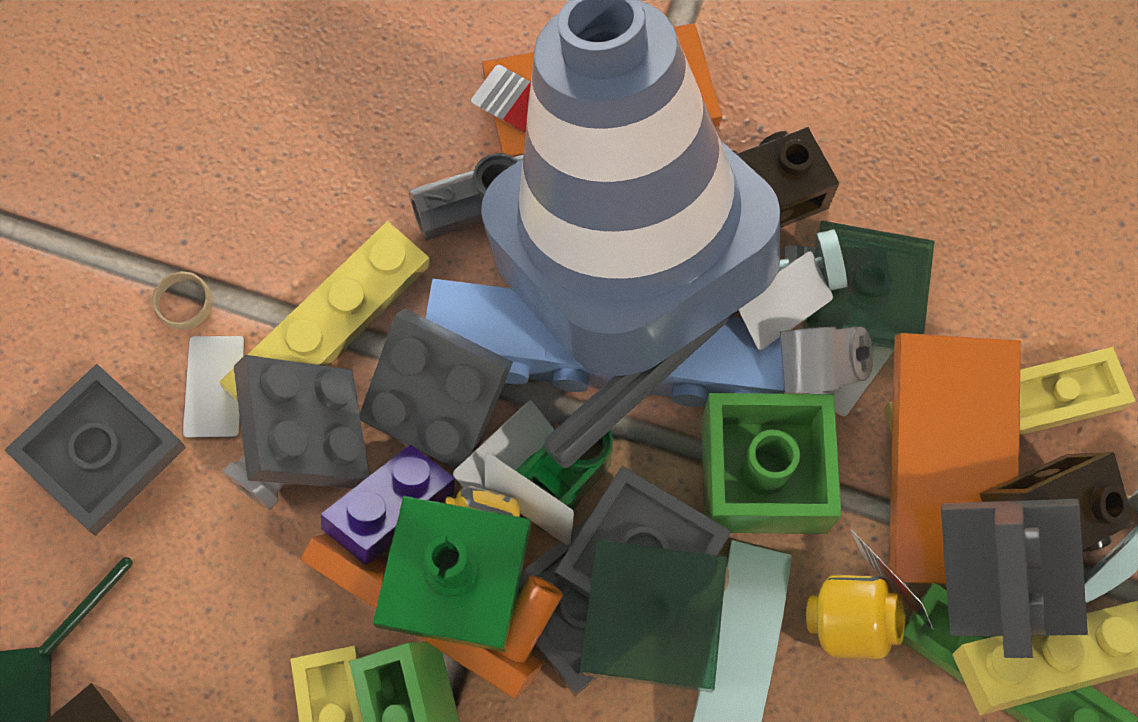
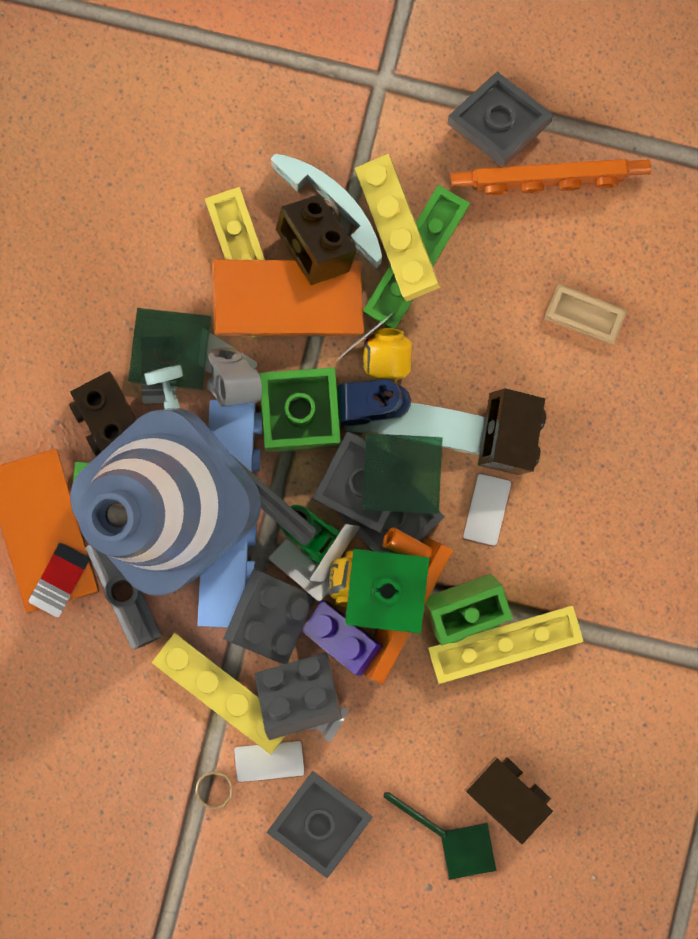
camera: 90 degrees left, 15 degrees up
(780, 580) = (365, 401): none -> dark blue piece
(788, 301) = (193, 397): white sticker -> none
(1014, 570) = (361, 268): dark grey bracket -> none

